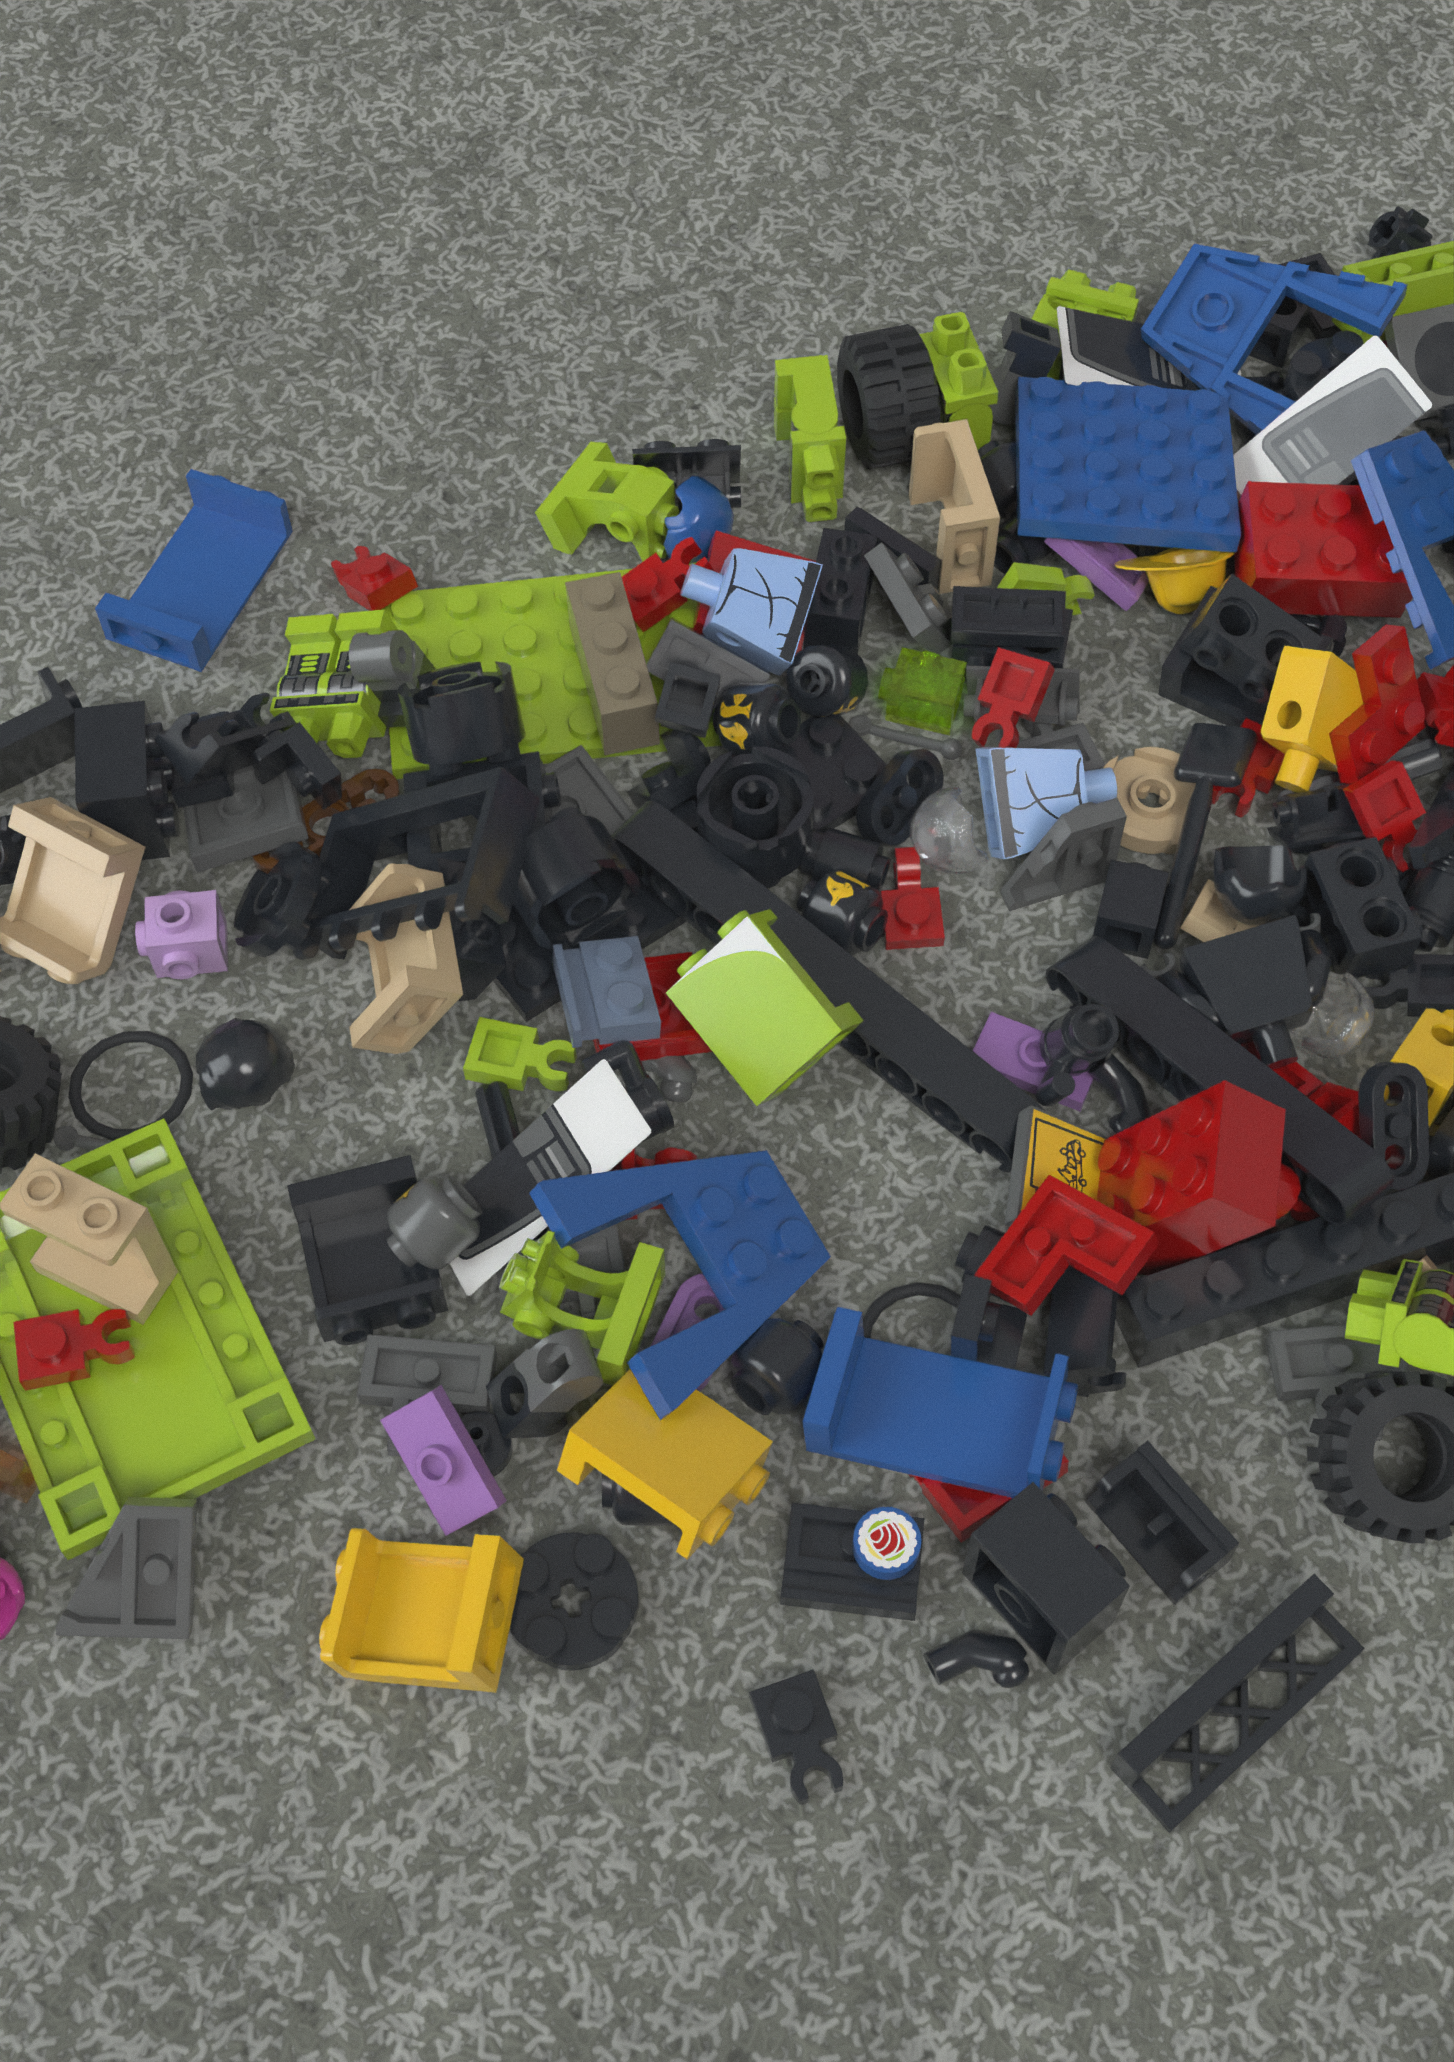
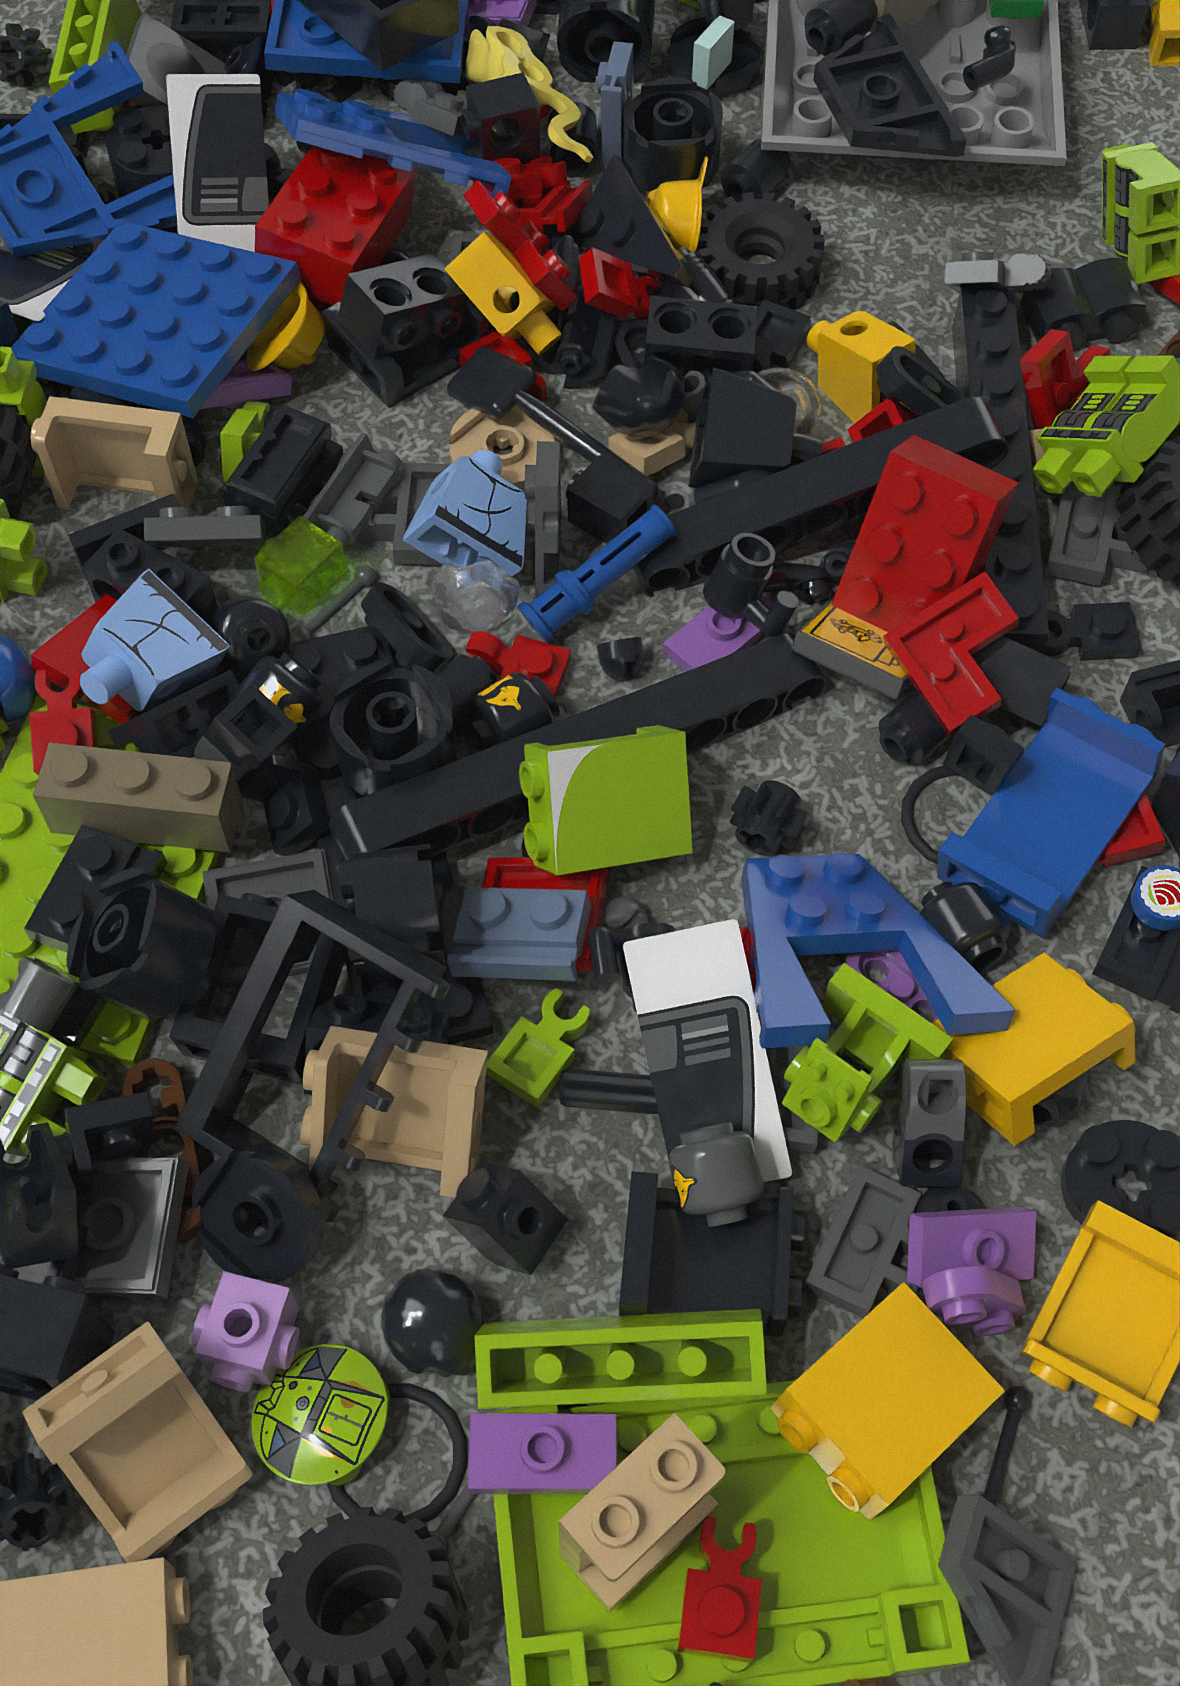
camera: 70 degrees left, 0 degrees up
(136, 1159) = (540, 1452): none -> medium lavender plate
(140, 1016) = (320, 1416): none -> lime dish
(243, 1207) = (620, 1358): none -> lime brick
(268, 1419) = (885, 1402): none -> yellow panel
(325, 1555) = (1017, 1401): none -> black hinge
(340, 1077) = (505, 1217): none -> black brick
(377, 1453) = (975, 1298): none -> medium lavender plate
(540, 667) = (74, 886): none -> black plate
(827, 1160) = (768, 818): none -> black gear
(962, 981) = (616, 652): none -> black hinge
(1005, 914) = (575, 590): none -> blue pin
(1011, 692) = (358, 489): red plate -> none
(1212, 1412) = (1097, 631): none -> black plate

